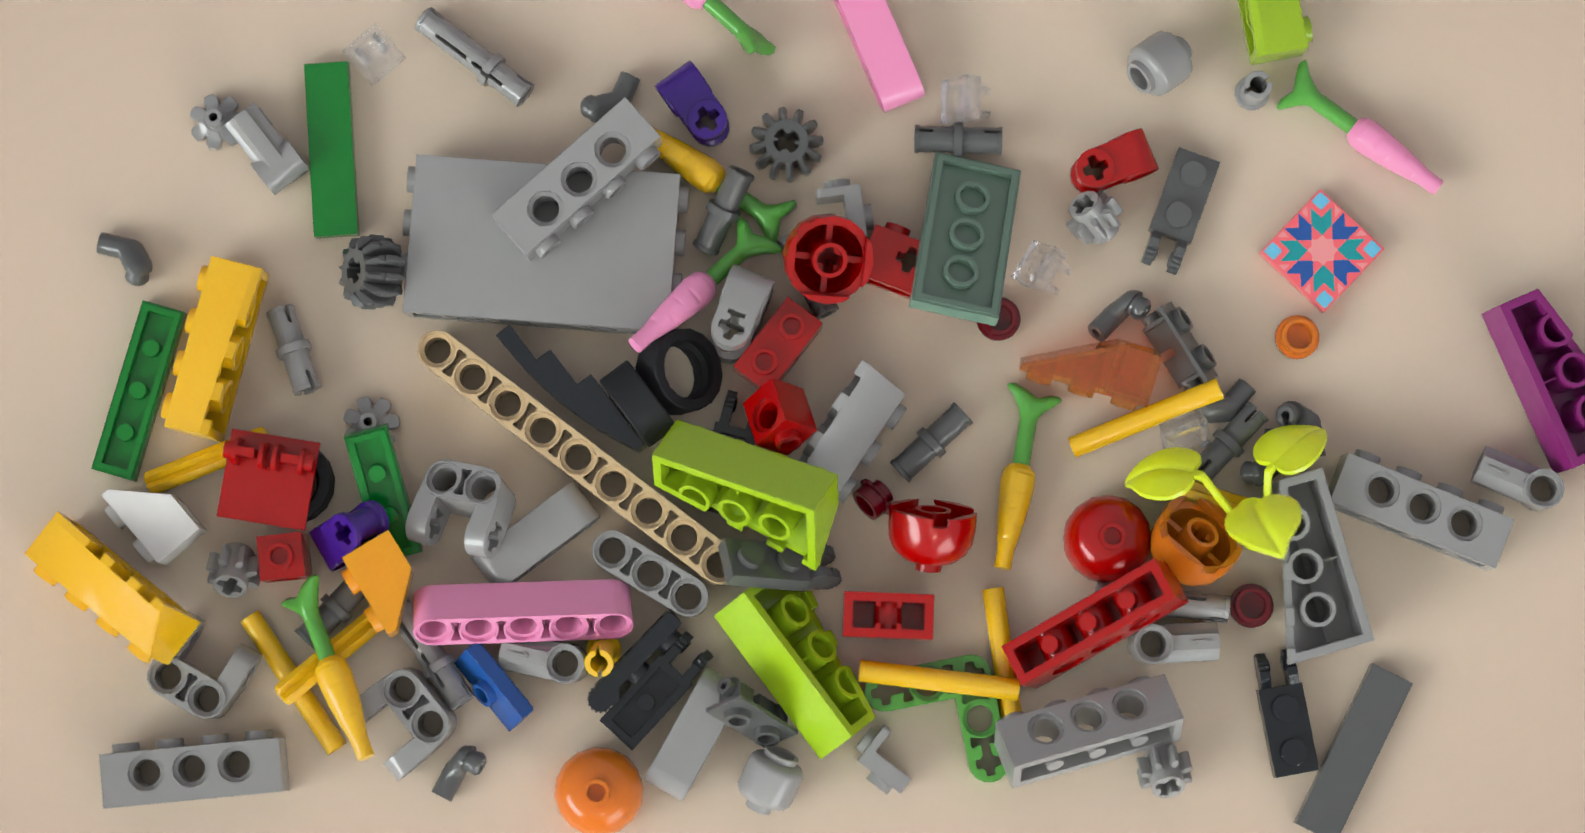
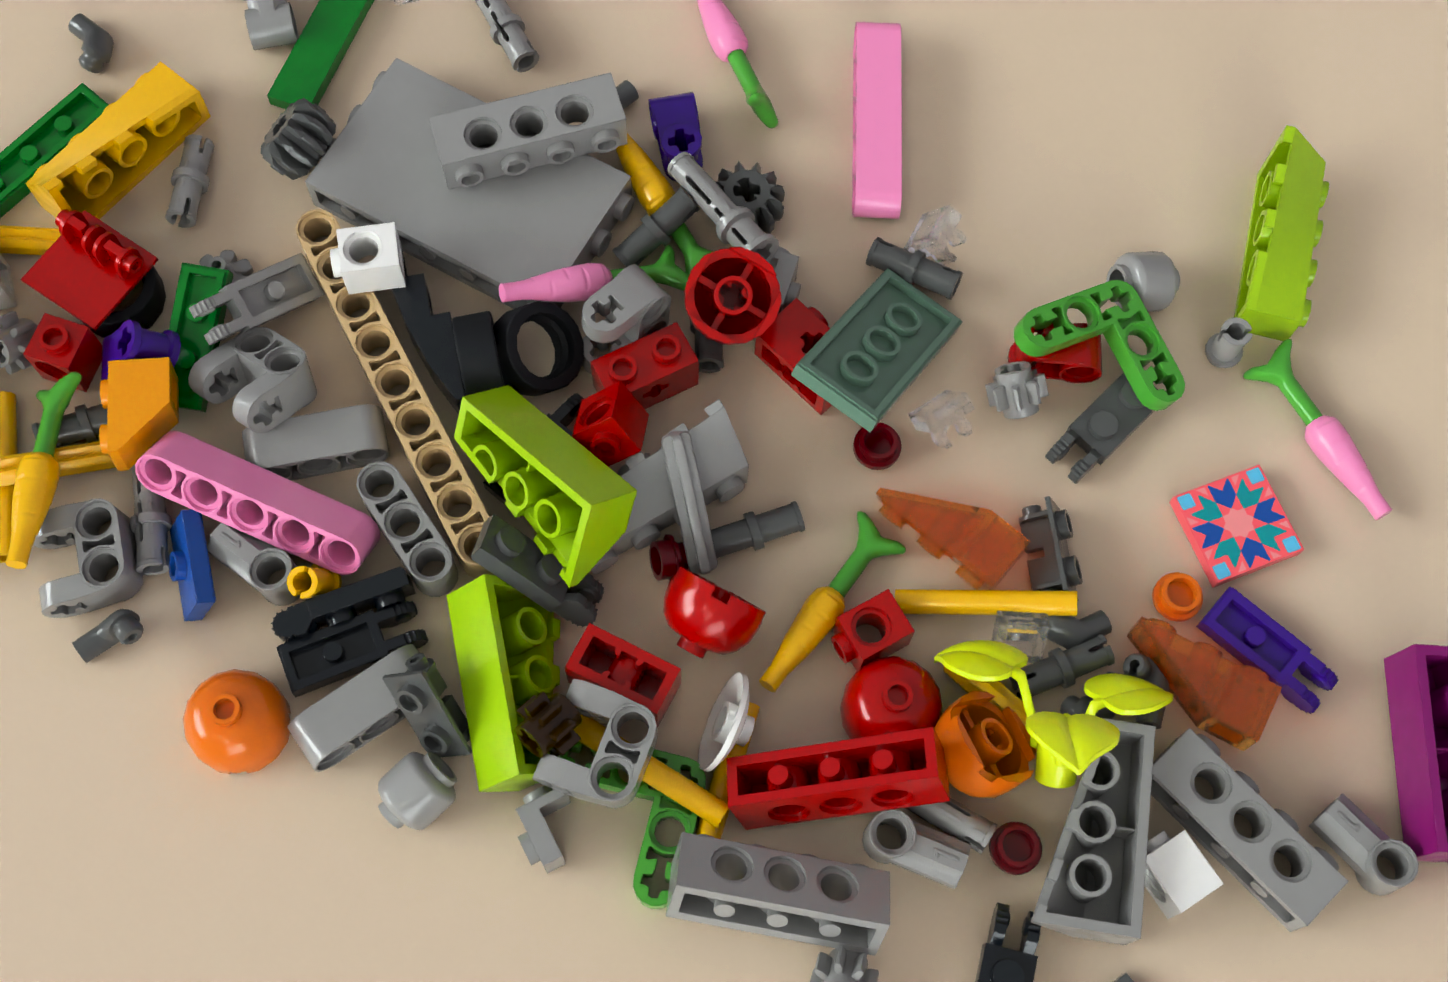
camera: 25 degrees right, 15 degrees down
(424, 435) = (261, 297): none -> light grey hinge
(510, 344) = (382, 272): none -> white brick
(793, 183) = (733, 222): none -> light grey pin
(857, 690) = (548, 724): none -> dark brown gear
(875, 452) = (689, 502): none -> light grey axle
(914, 685) = (612, 752): none -> light grey piece
(985, 617) = (727, 723): none -> white dish
(1078, 471) = (882, 613): none -> red brick
(1114, 315) = (1016, 487): dark grey arm -> none
(1155, 125) = (1115, 326): none -> bright green beam
(1357, 408) = (1213, 692): none -> clear orange slope
(1381, 349) = (1266, 645): none -> dark purple hinge
(1382, 569) = (1177, 873): none -> white brick

